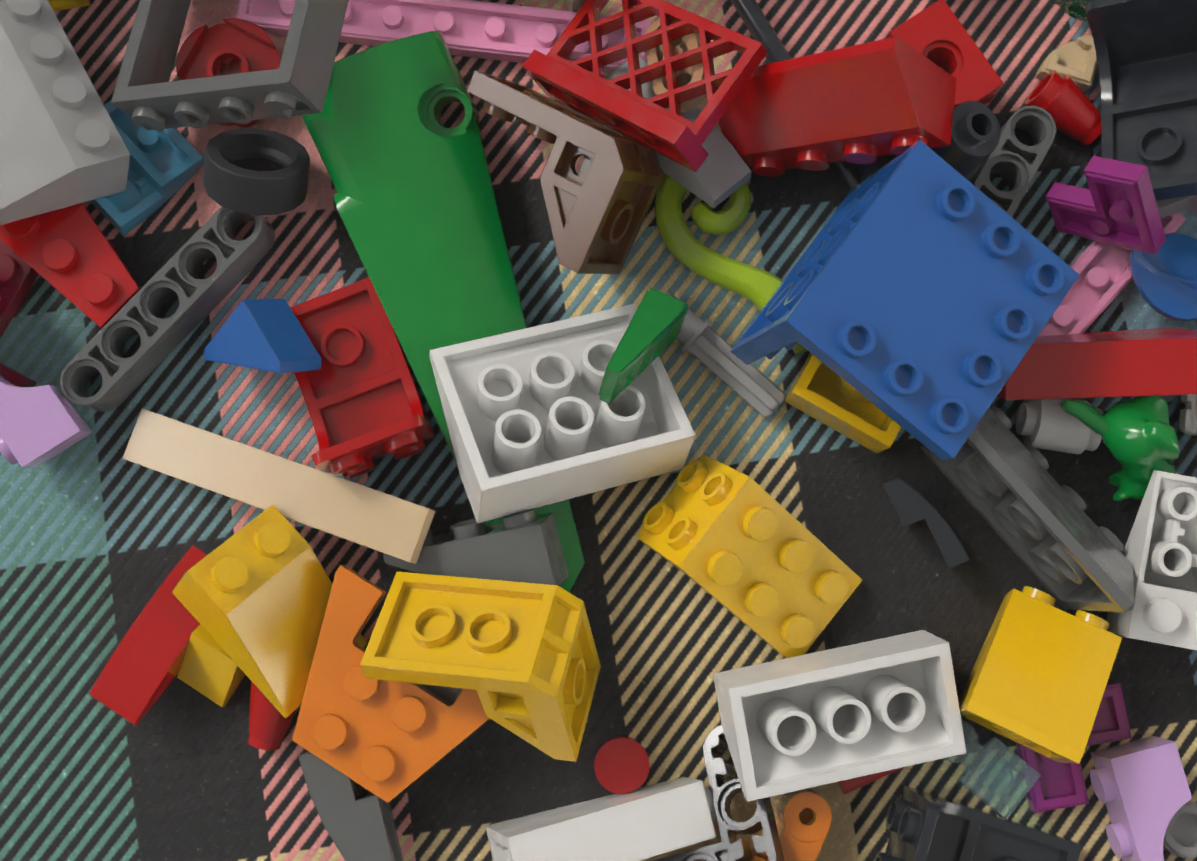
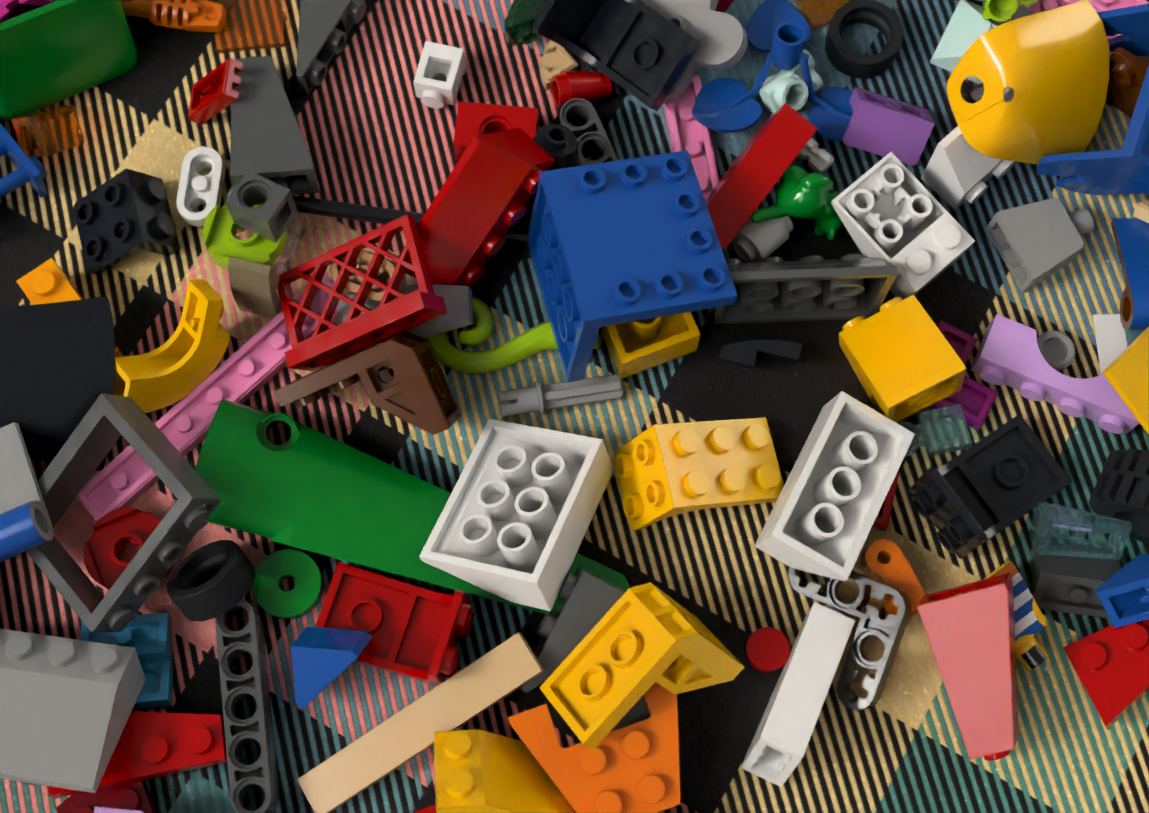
camera: 55 degrees left, 10 degrees down
(294, 245) = (292, 603): none -> green piece
(646, 337) = (518, 420): green slope -> none
(1116, 208) = (663, 106): magenta tile -> none

